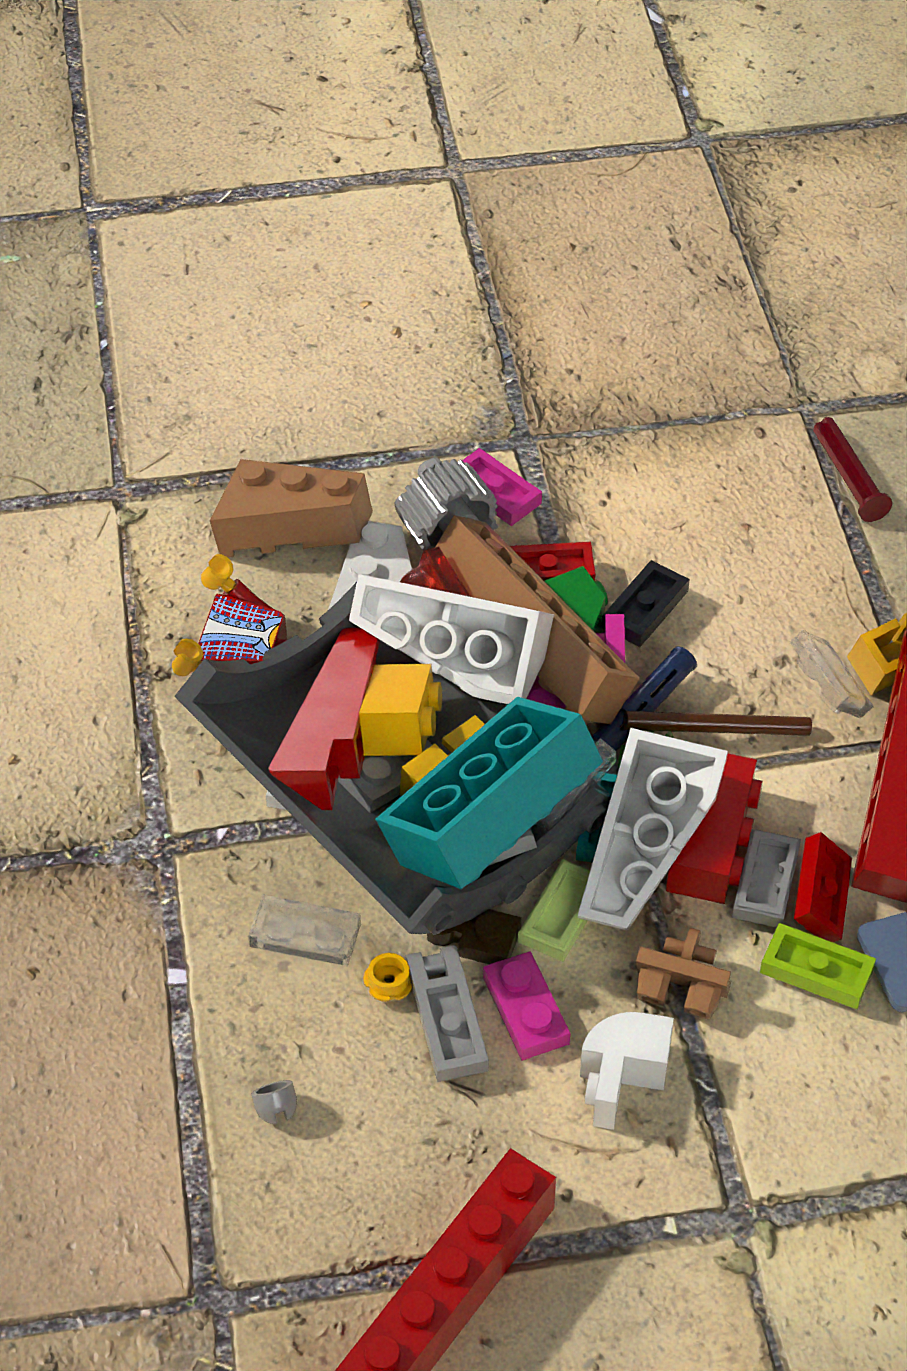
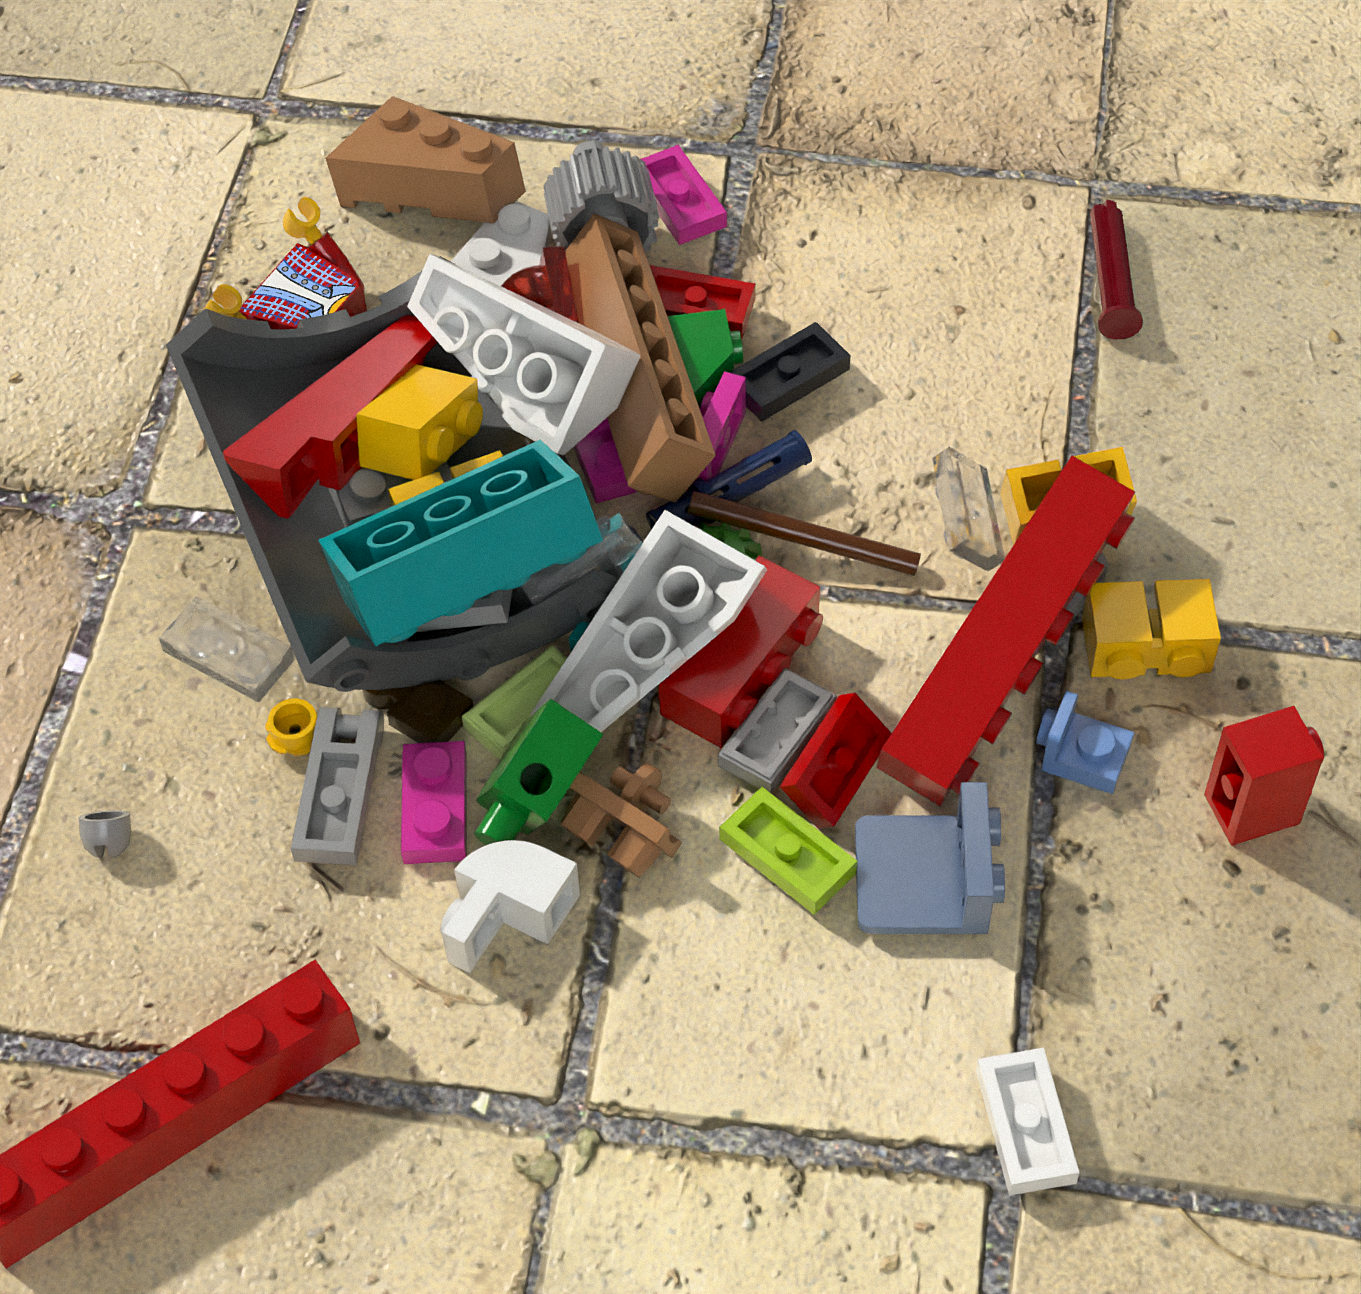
camera: 20 degrees right, 5 degrees up
(608, 956) = (544, 760): none -> green torso

